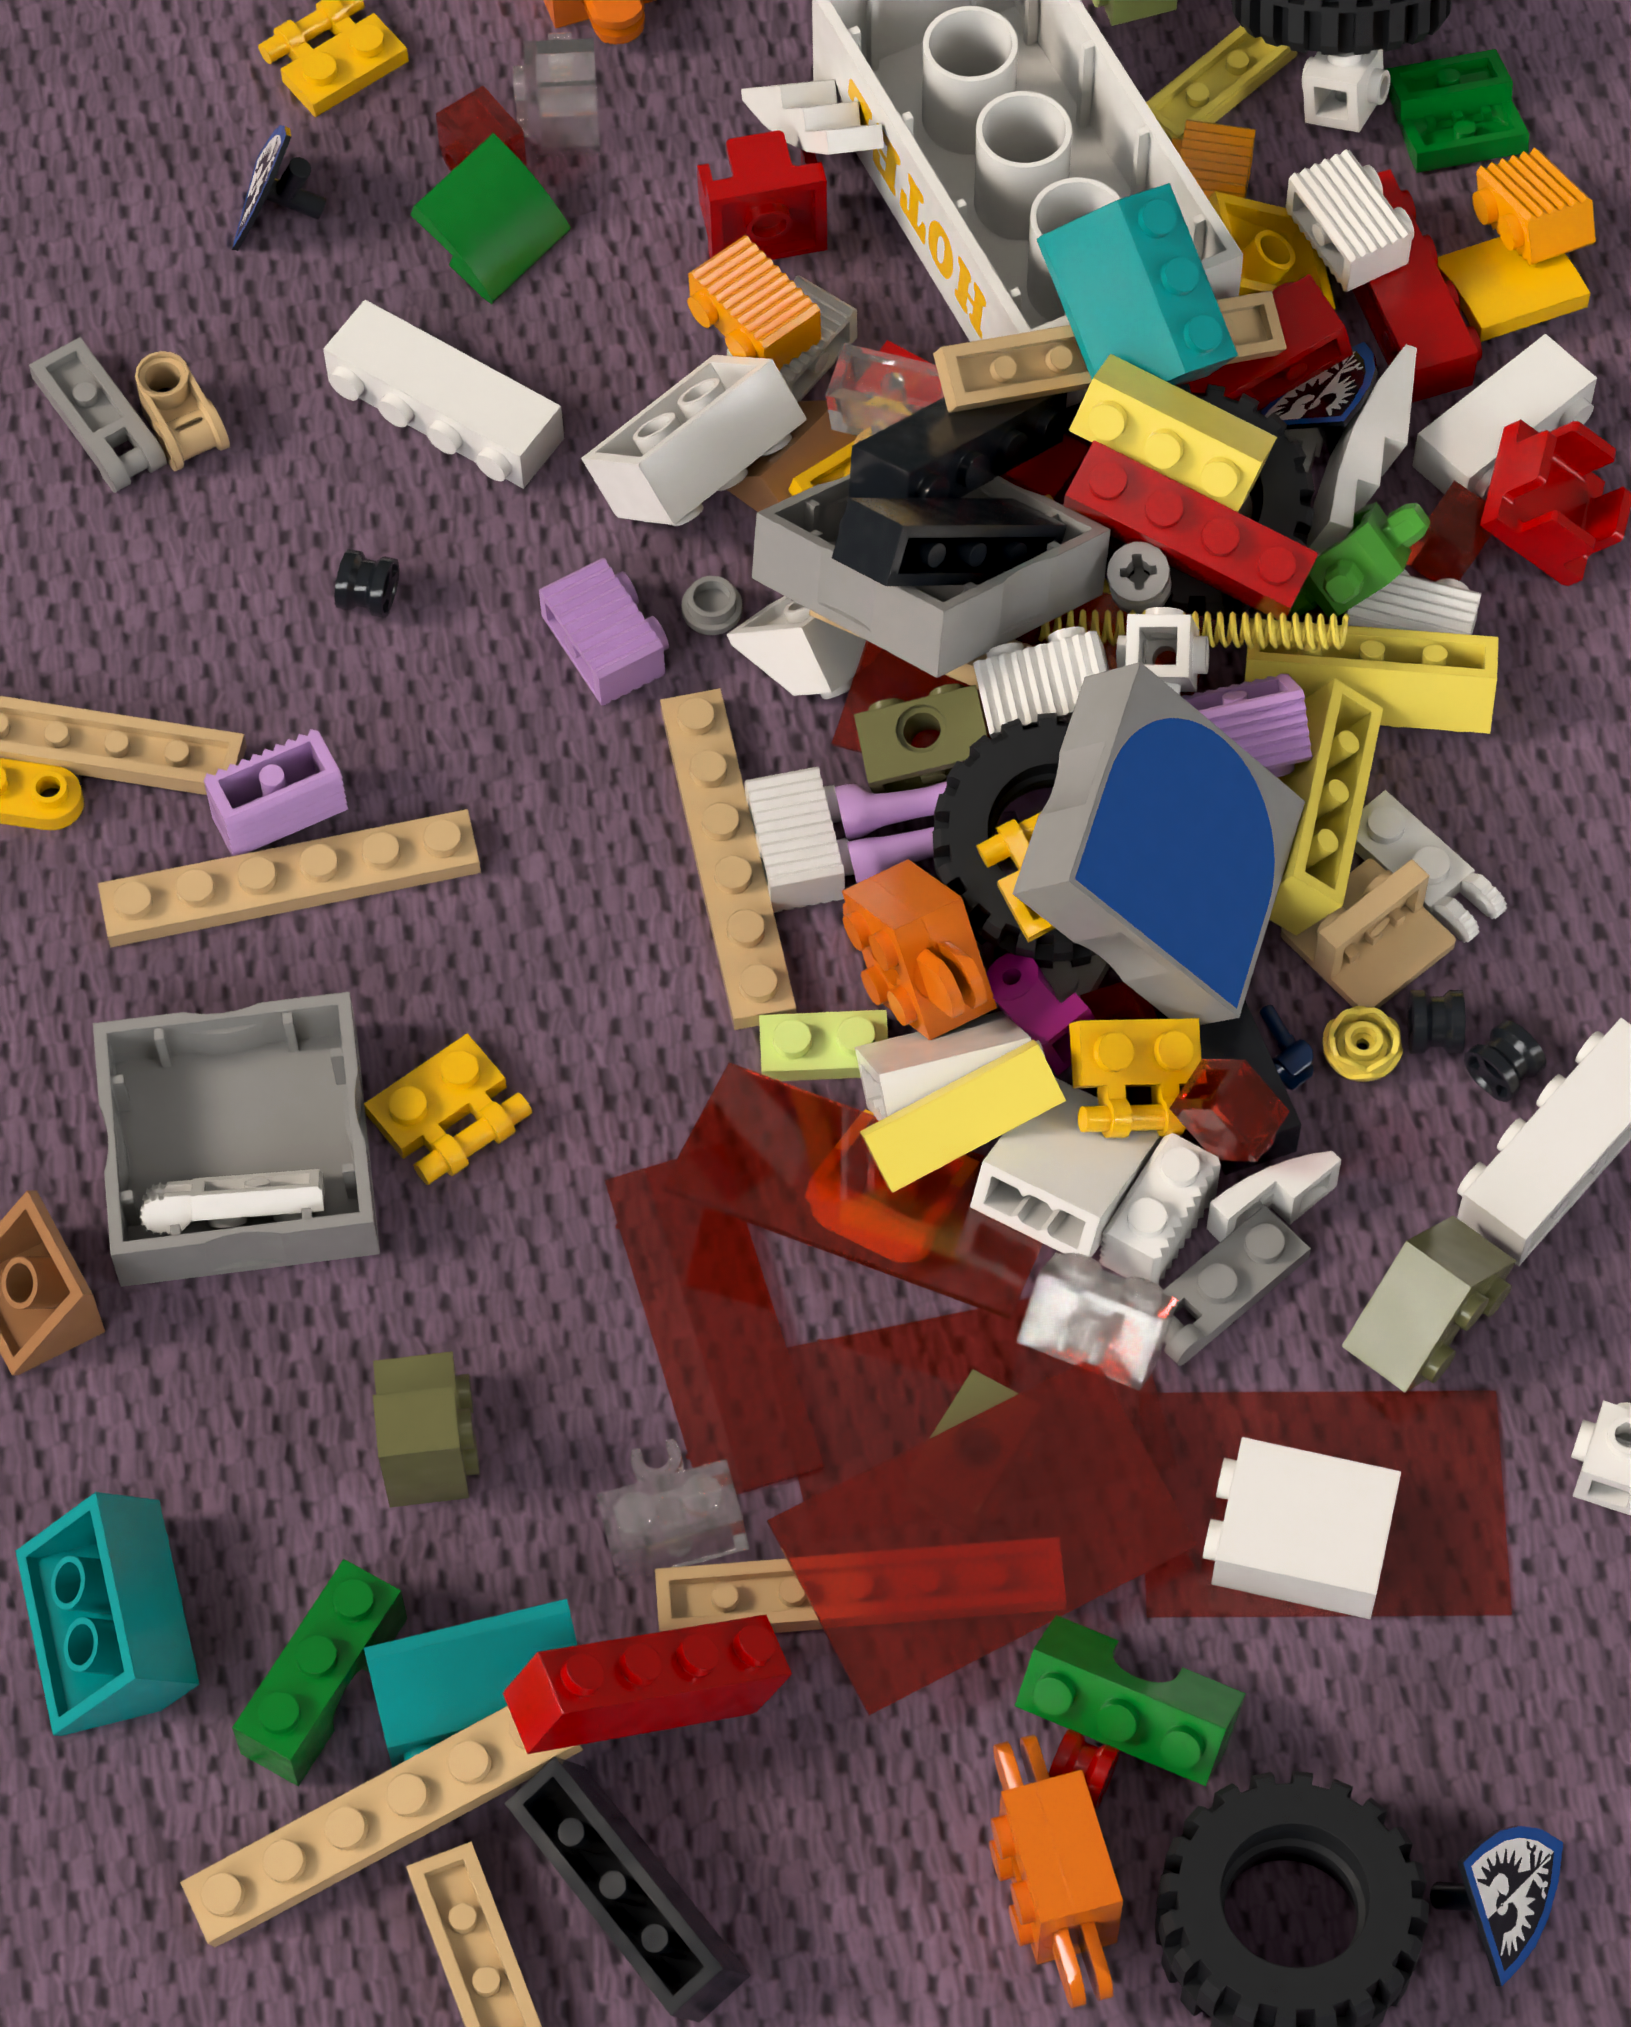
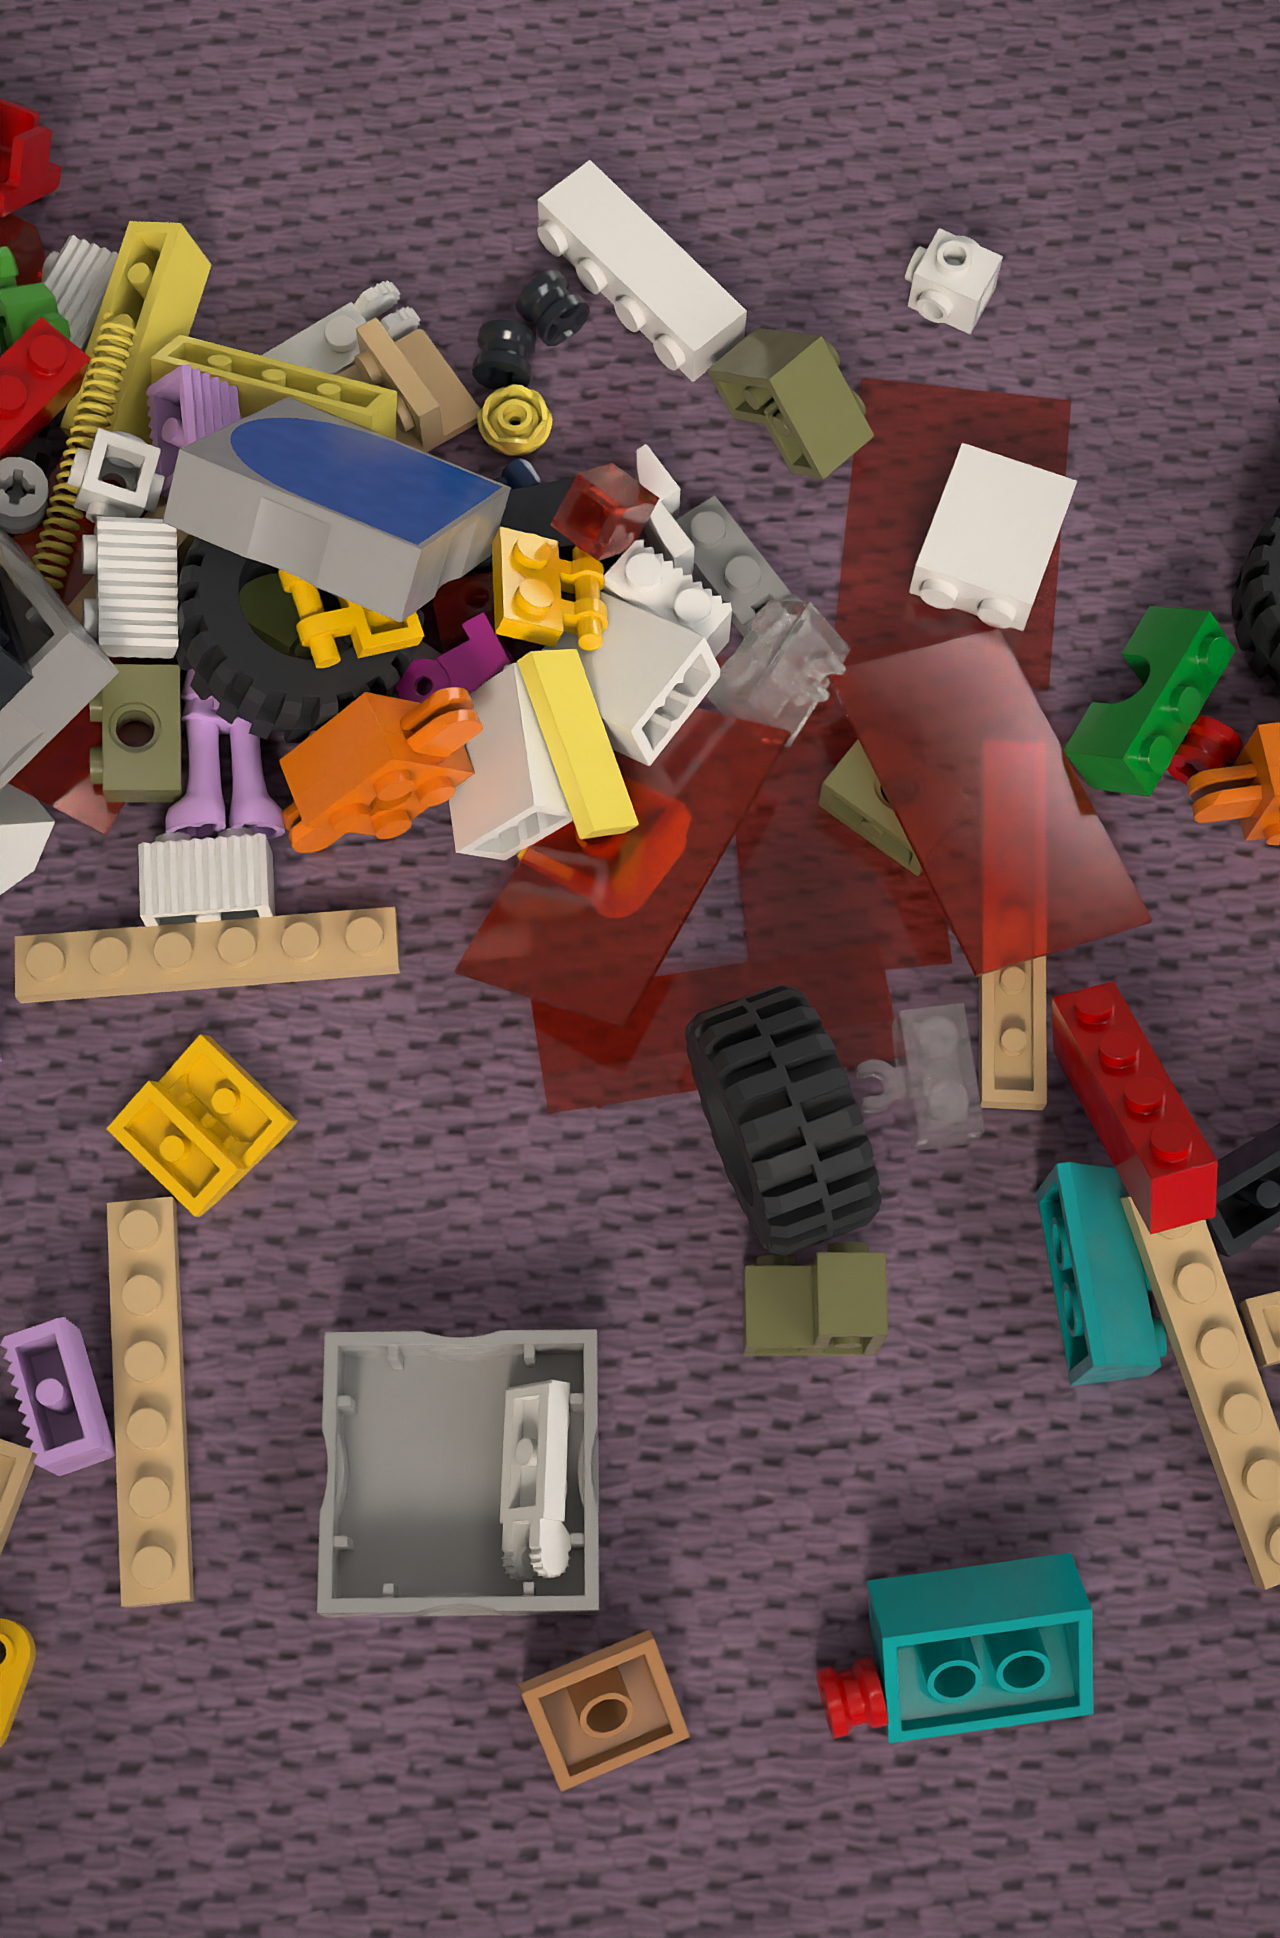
camera: 85 degrees left, 10 degrees up
(47, 1495) = (852, 1697): none -> red wheel
(297, 1700) = (1091, 1445): green arch -> none
(439, 1095) = (434, 1268): yellow plate -> none
(555, 878) = (201, 1125): none -> yellow slope
(585, 1342) = (783, 1119): none -> black tyre
(817, 1043) = (434, 892): yellowish green plate -> none

